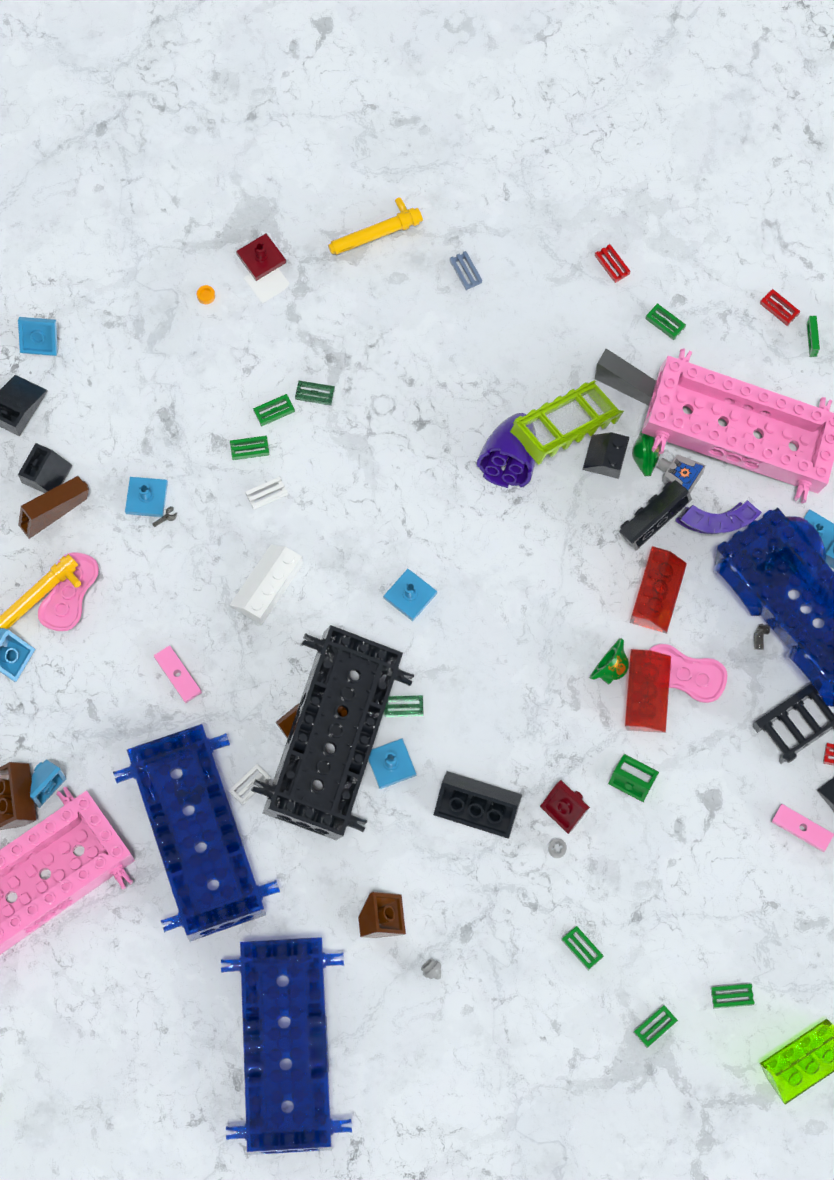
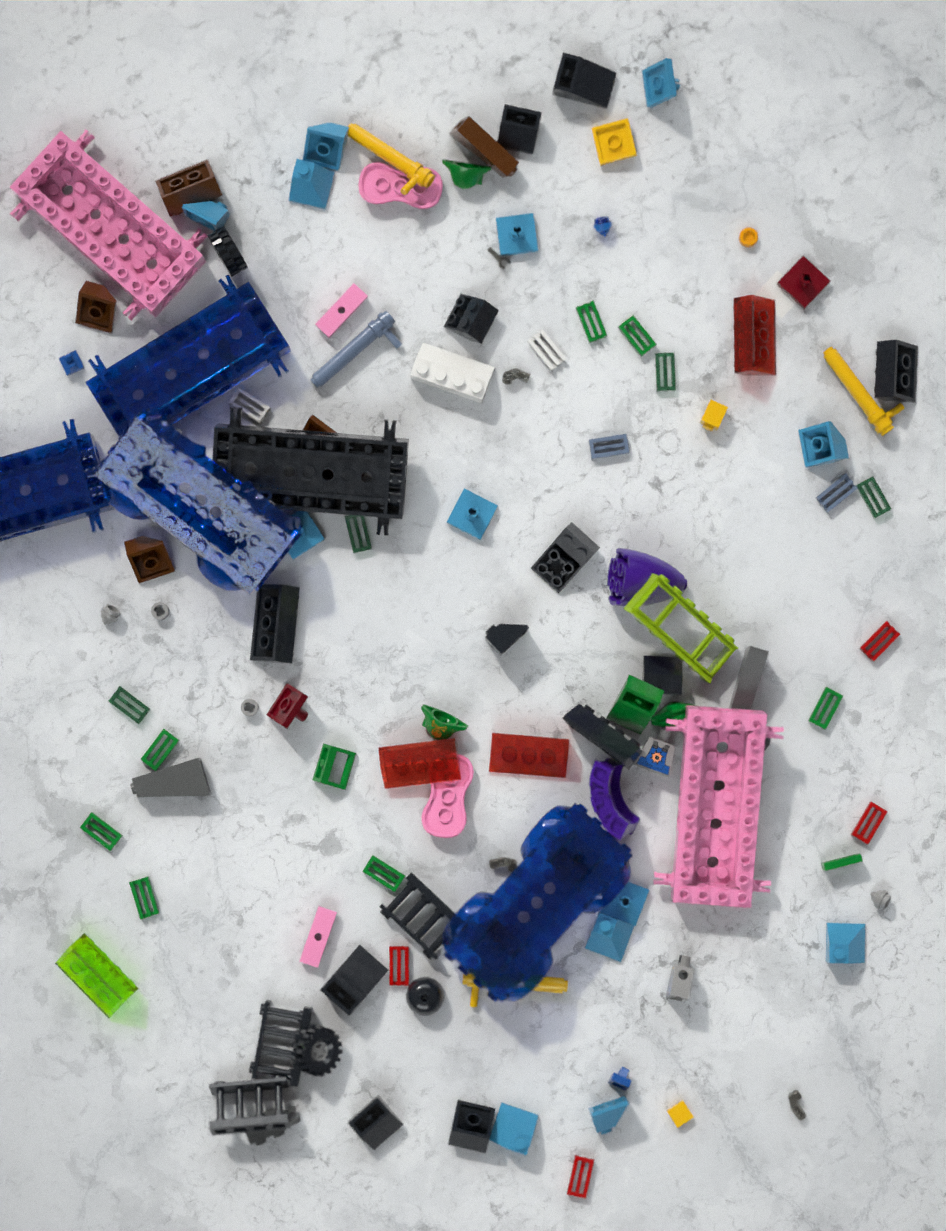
camera: 75 degrees right, 15 degrees up
(42, 677) = (310, 184): none -> dark azure slope
(75, 528) = (466, 174): none -> green hat
(81, 390) = (614, 141): none -> yellow plate
(88, 767) = (227, 251): none -> black wheel
(109, 914) = (95, 307): none -> reddish brown slope
(159, 417) = (602, 225): none -> clear blue plate
(159, 955) = (71, 363): none -> blue tile
(205, 646) = (375, 330): none -> sand blue cylinder
(217, 553) = (471, 318): none -> black slope
(282, 526) = (514, 374): none -> clear smoke arm
(301, 307) = (754, 336): none -> clear red slope
(365, 197) = (896, 371): none -> black slope
(367, 357) = (713, 415): none -> yellow brick
(373, 472) = (604, 447): none -> sand blue tile
(395, 825) = (144, 483): none -> clear blue piece
(418, 271) = (822, 444): none -> dark azure slope
(437, 911) = (165, 608): none -> light grey bush
(473, 517) = (565, 557): none -> black slope
(478, 243) = (880, 511): none -> clear green tile
(540, 586) = (504, 636): none -> black slope
(543, 958) = (116, 695): none -> clear green tile
(618, 938) = (177, 780): none -> dark grey slope
(631, 478) = (635, 704): none -> green slope
(738, 764) = (369, 864): none -> green tile

